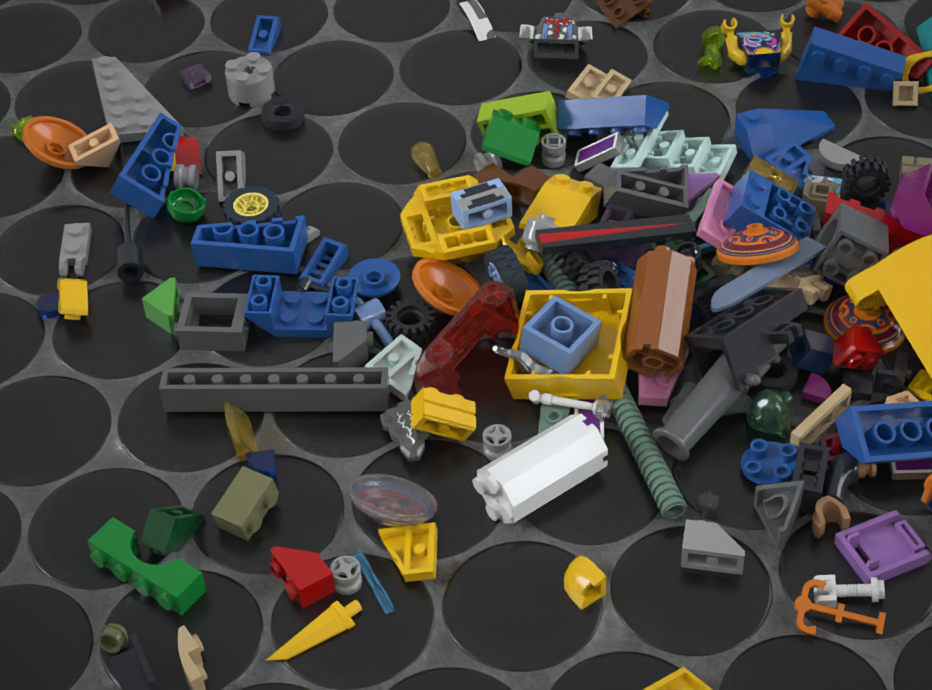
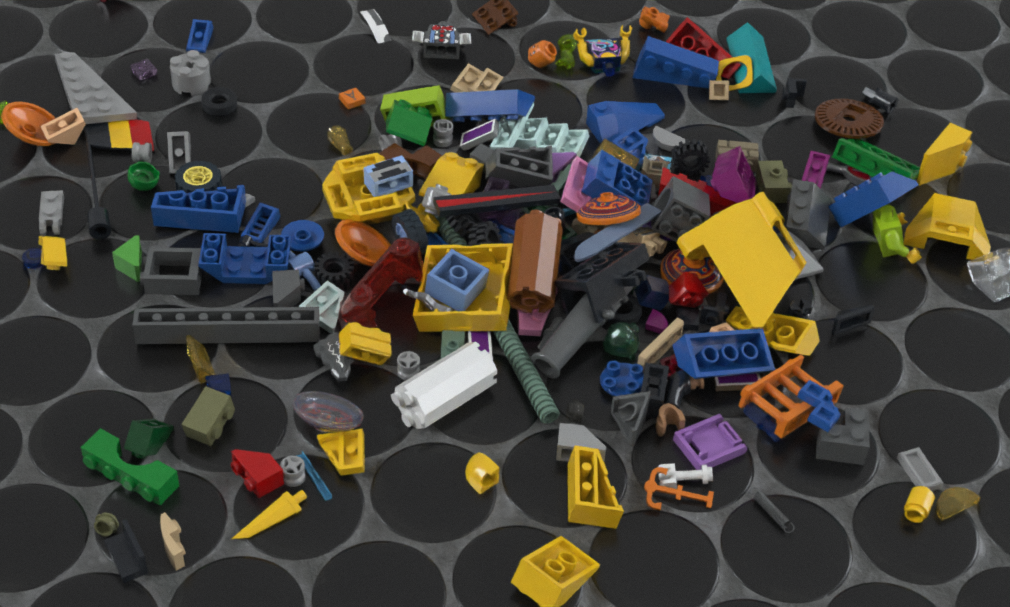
camera: 10 degrees left, 0 degrees up
(147, 171) = (110, 148): blue wedge -> none
(444, 108) = (352, 98): none -> orange tile
(601, 407) = (490, 337): white piece -> none
(681, 51) = (542, 54): none -> orange head
(722, 610) = (589, 490): none -> yellow wedge

